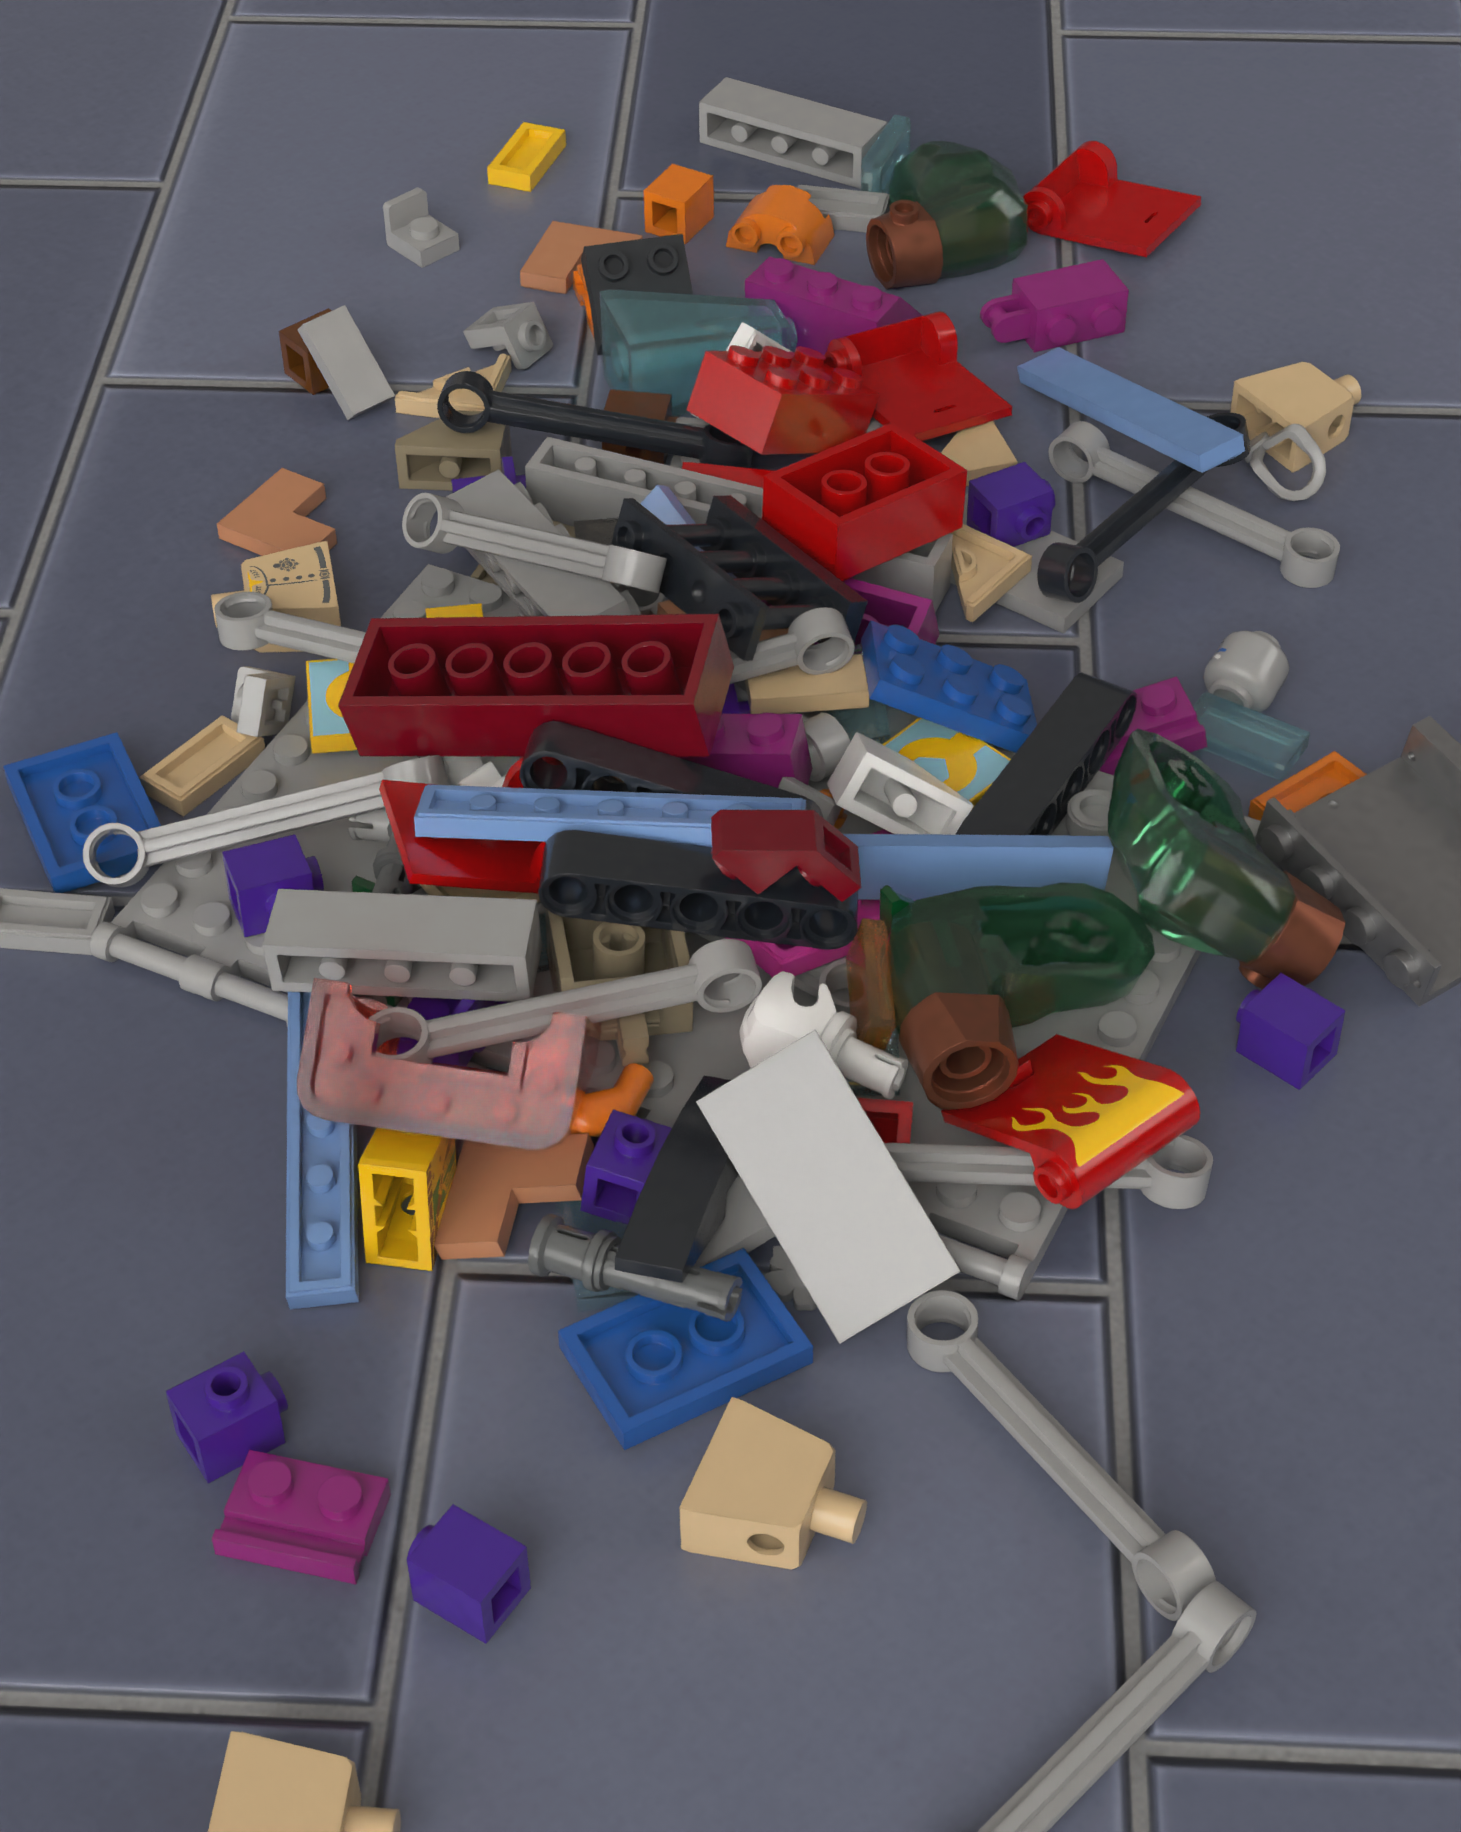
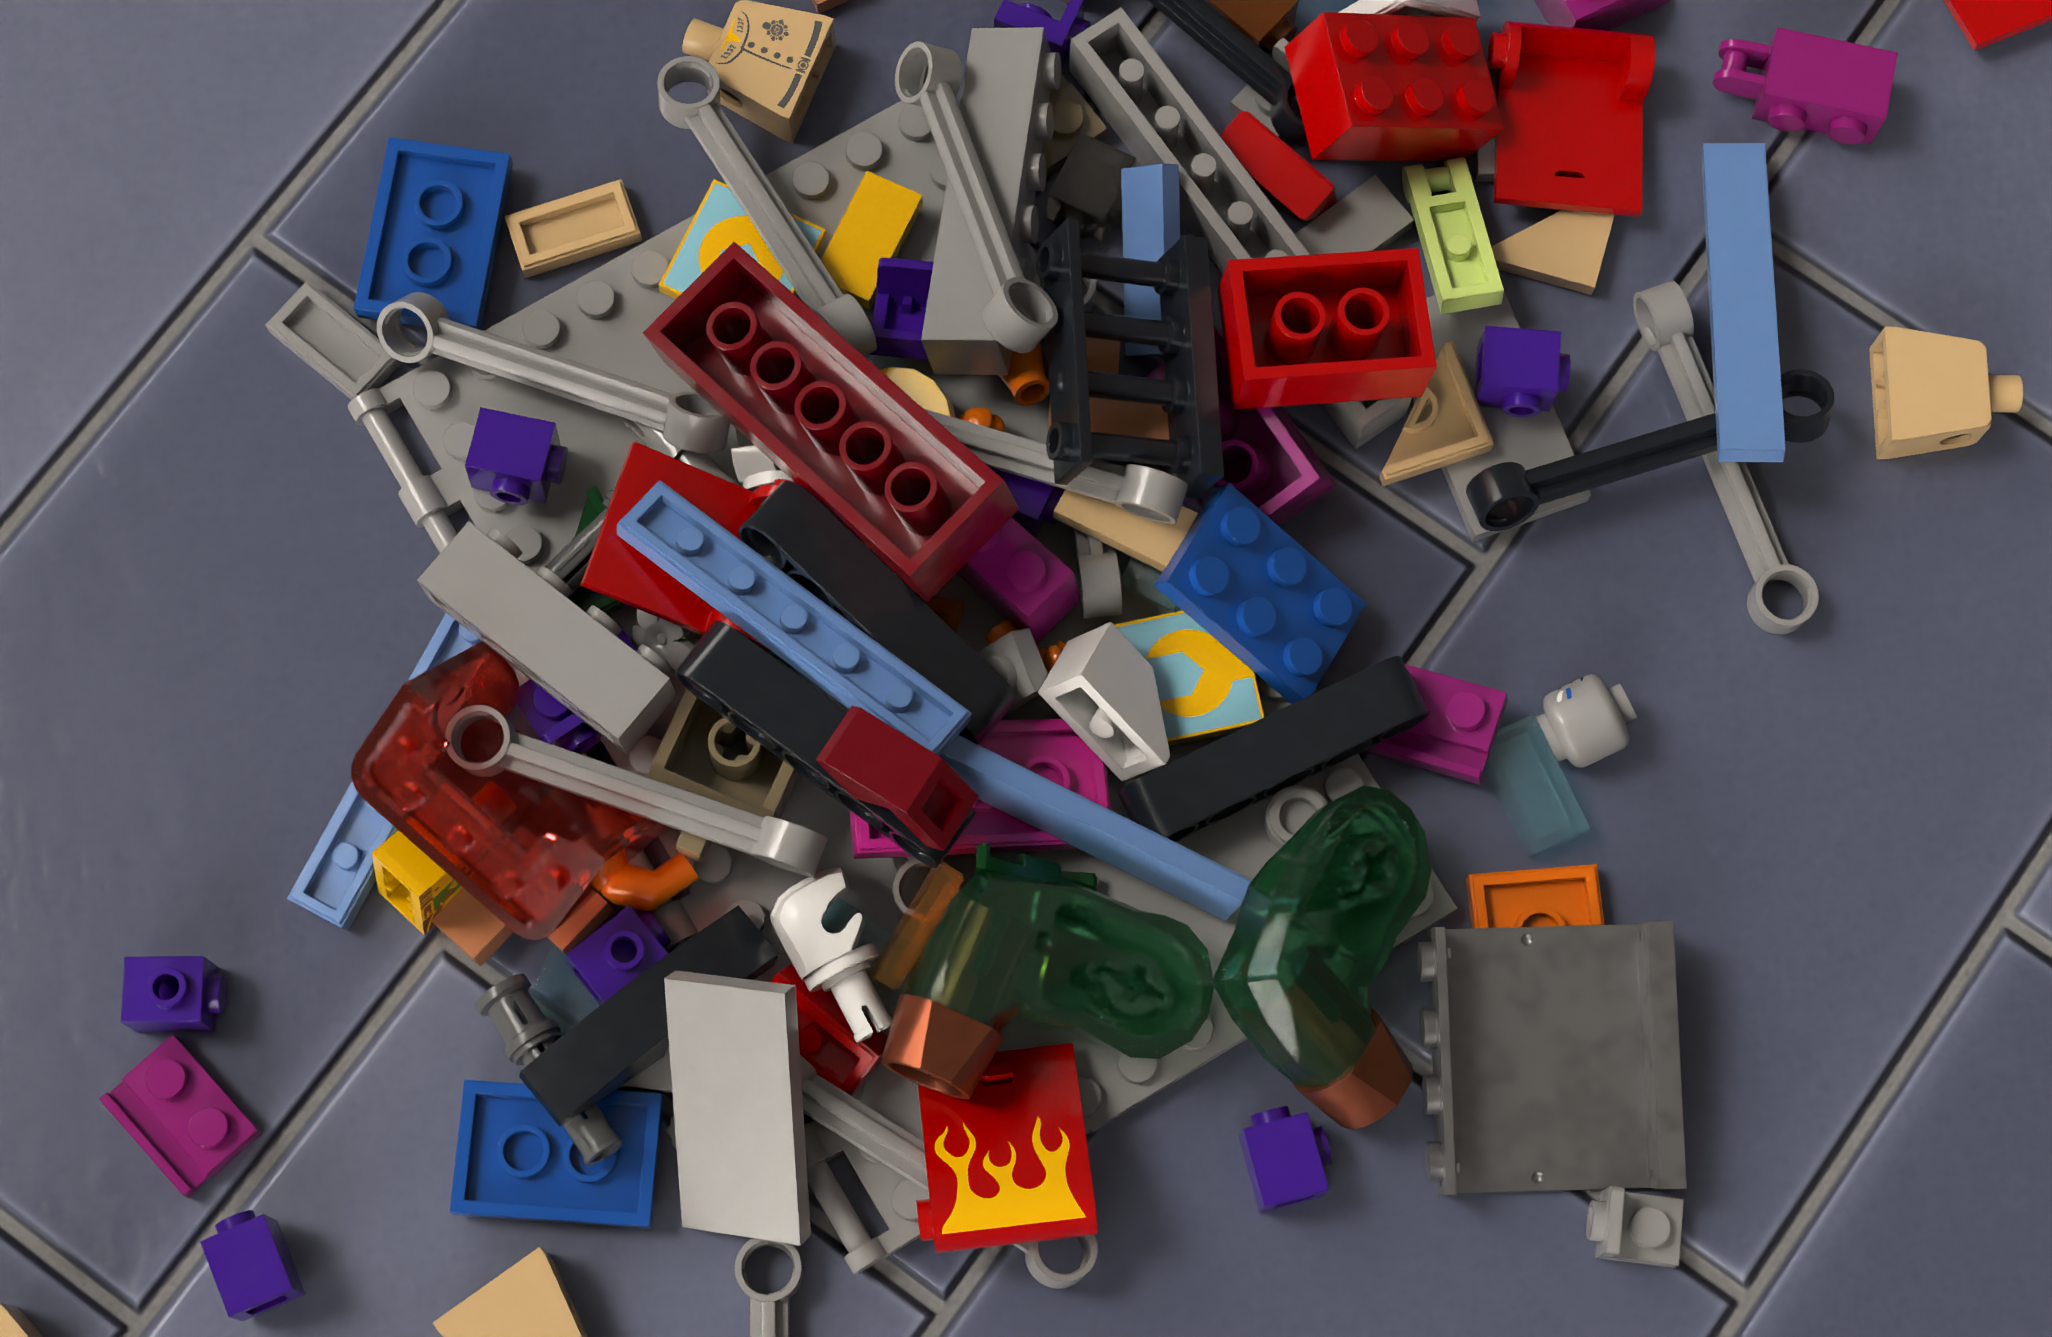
camera: 30 degrees right, 30 degrees up
(262, 701) = (655, 195): light grey bracket -> none
(1303, 440) = (1852, 414): light grey piece -> none

